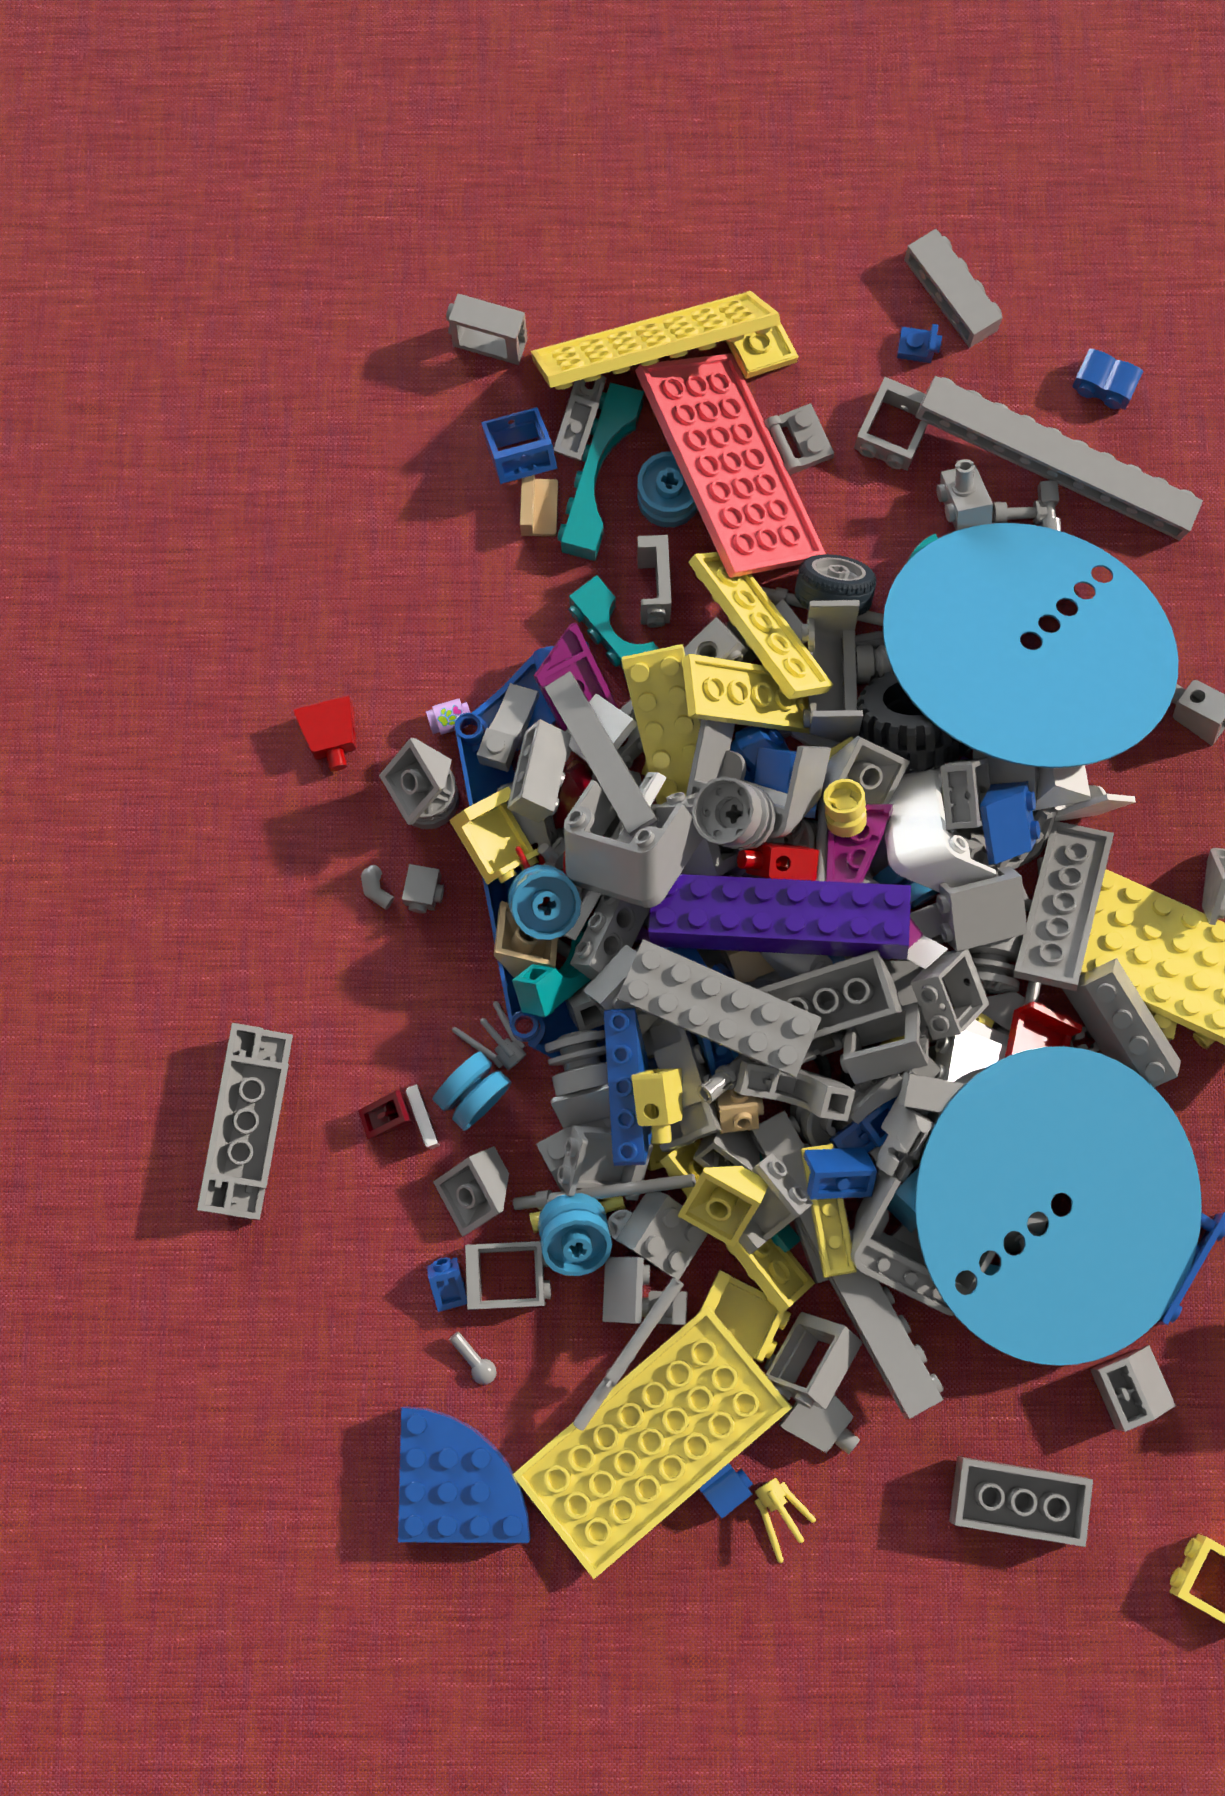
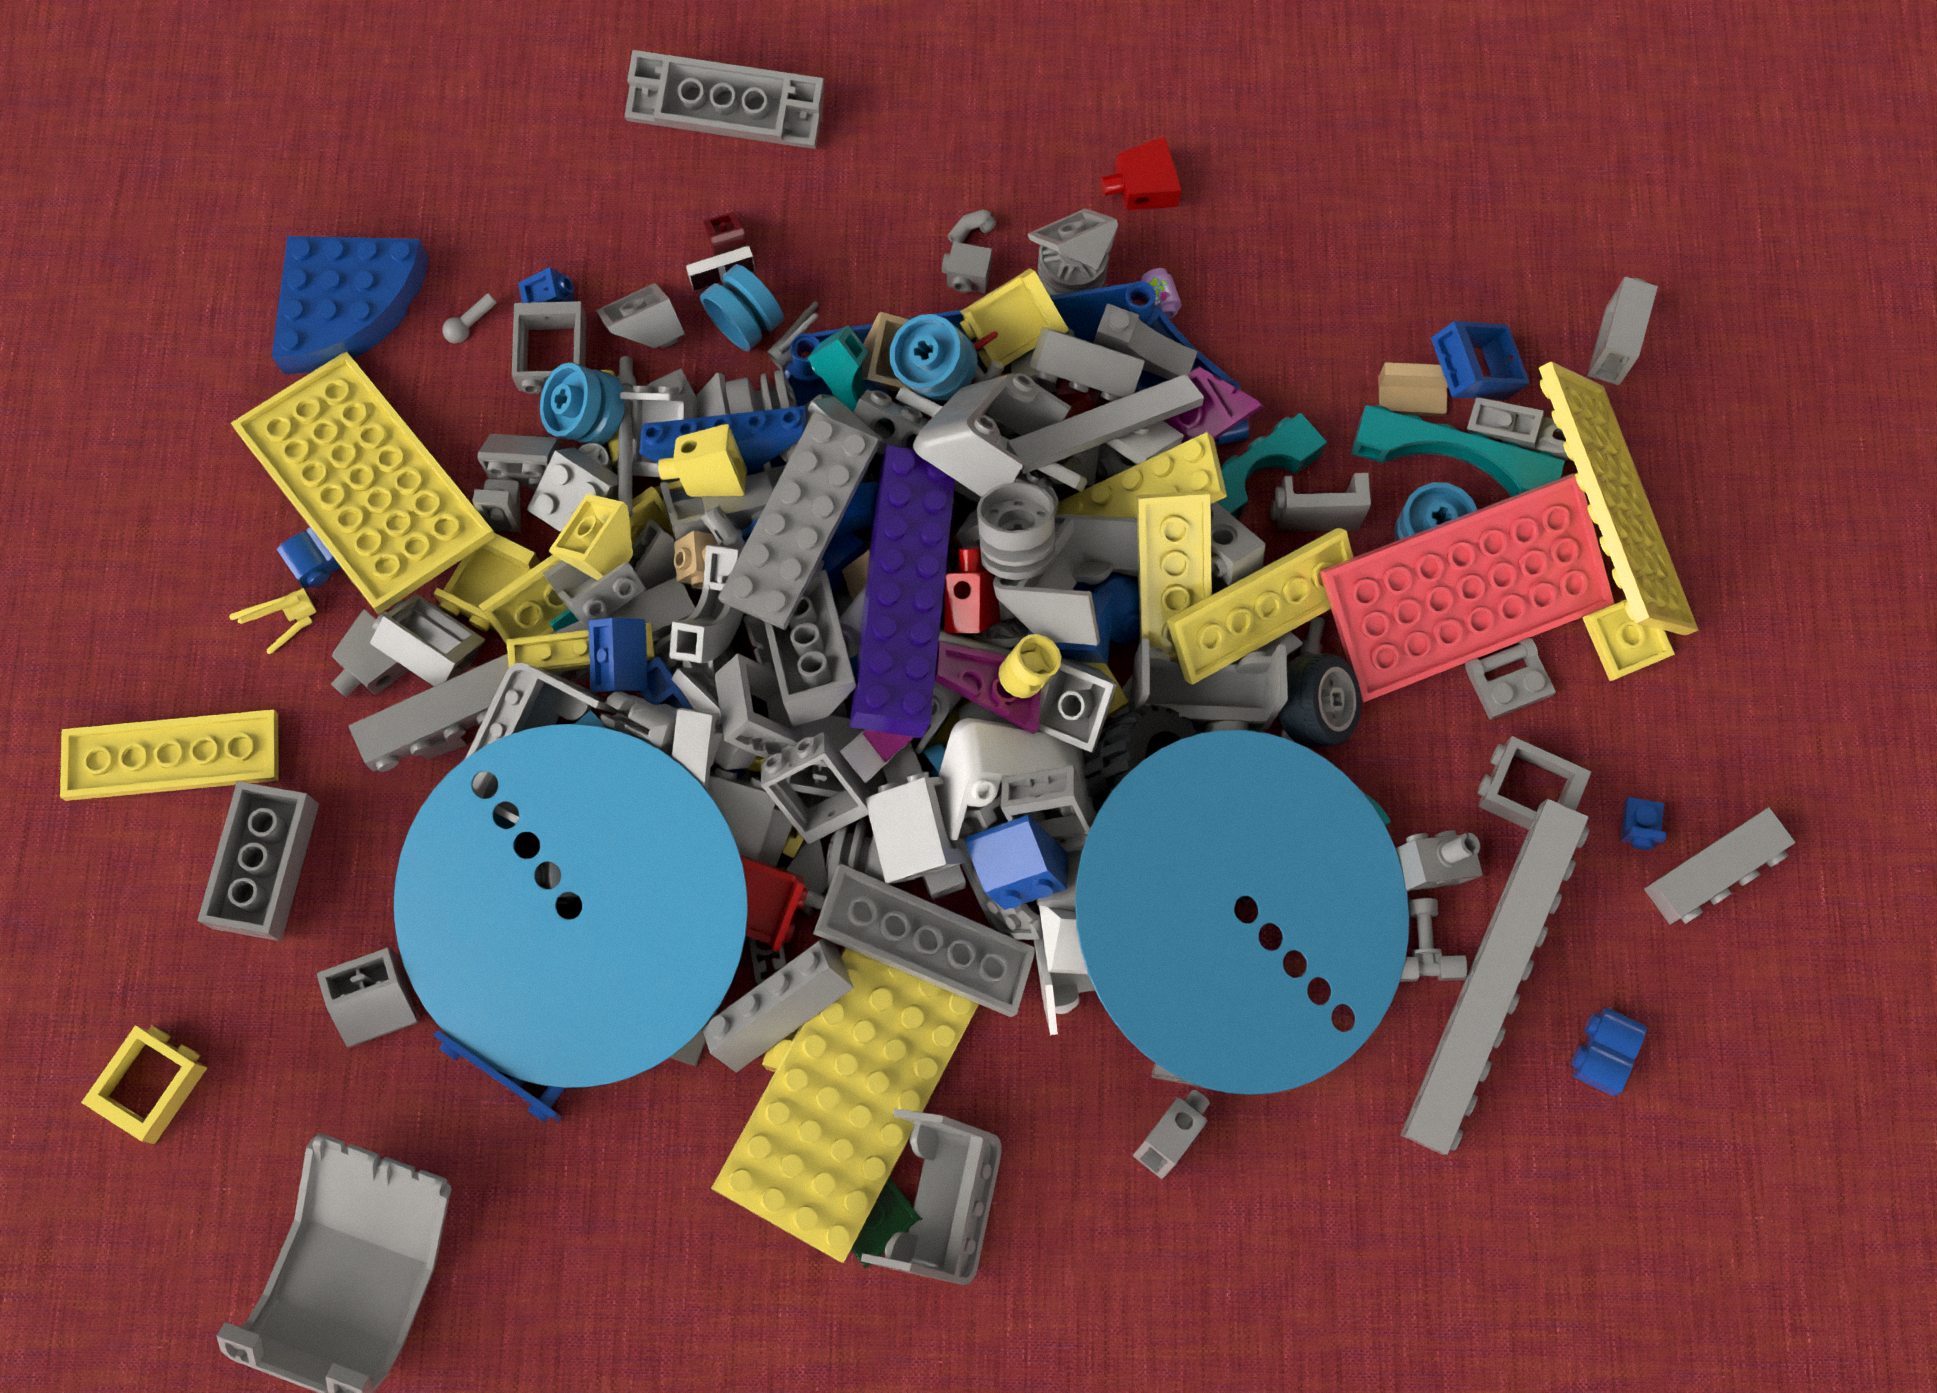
camera: 90 degrees right, 5 degrees down
(627, 1355) = (438, 441): light grey piece -> none
(921, 1603) = (169, 755): none -> light yellow plate

